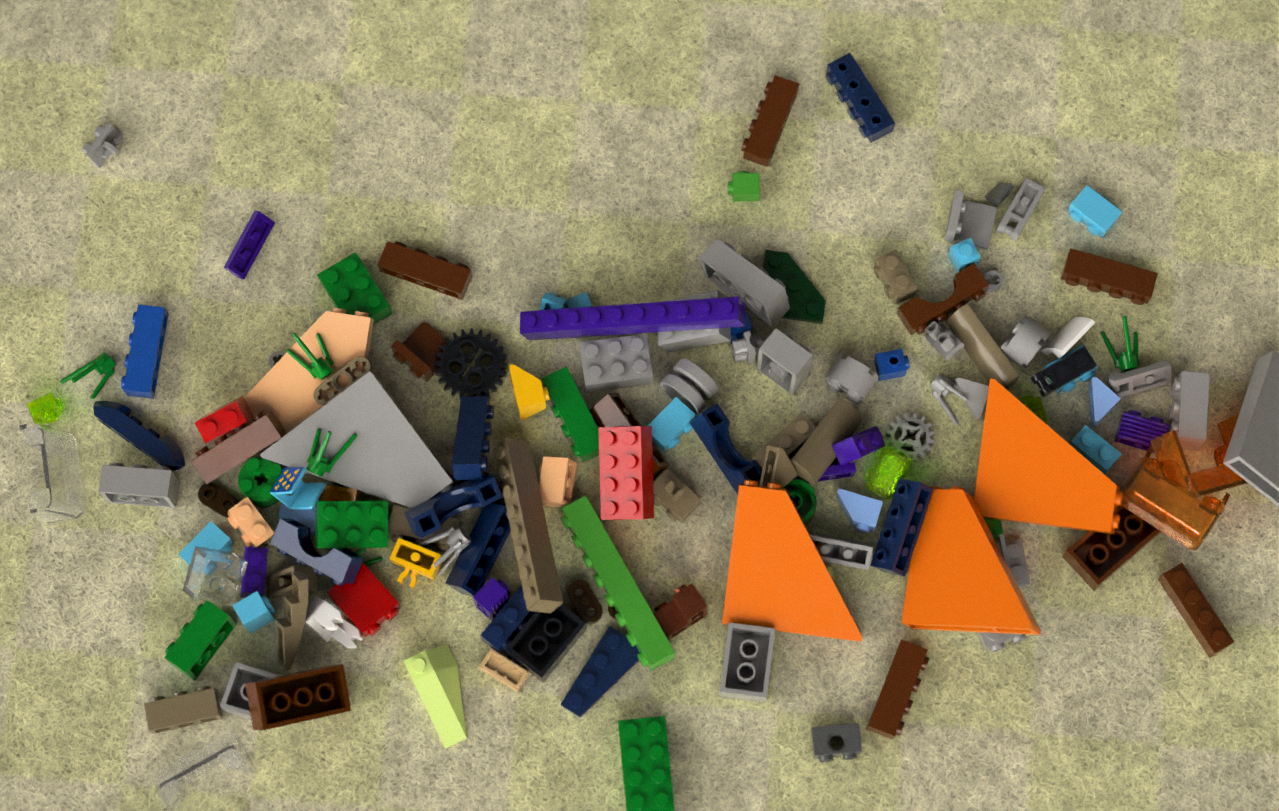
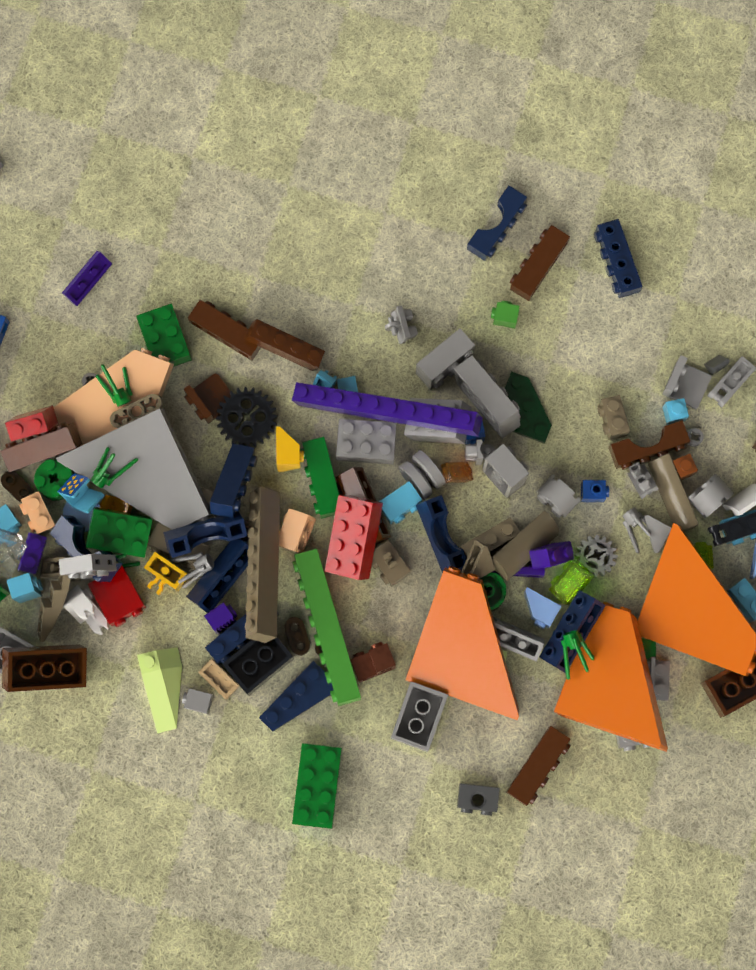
camera: 10 degrees right, 5 degrees up
(326, 565) = (87, 566): none -> light grey piece
(485, 700) = (197, 701): none -> light grey brick
(497, 272) = (284, 345): none -> reddish brown brick
(625, 224) = (399, 326): none -> light grey hips
(684, 250) = (444, 359): none -> light grey brick
(702, 109) = (485, 241): none -> dark blue arch
(729, 375) = (457, 472): none -> clear orange plate
(906, 535) = (574, 640): none -> green plant
(989, 315) = (685, 466): none -> dark orange brick

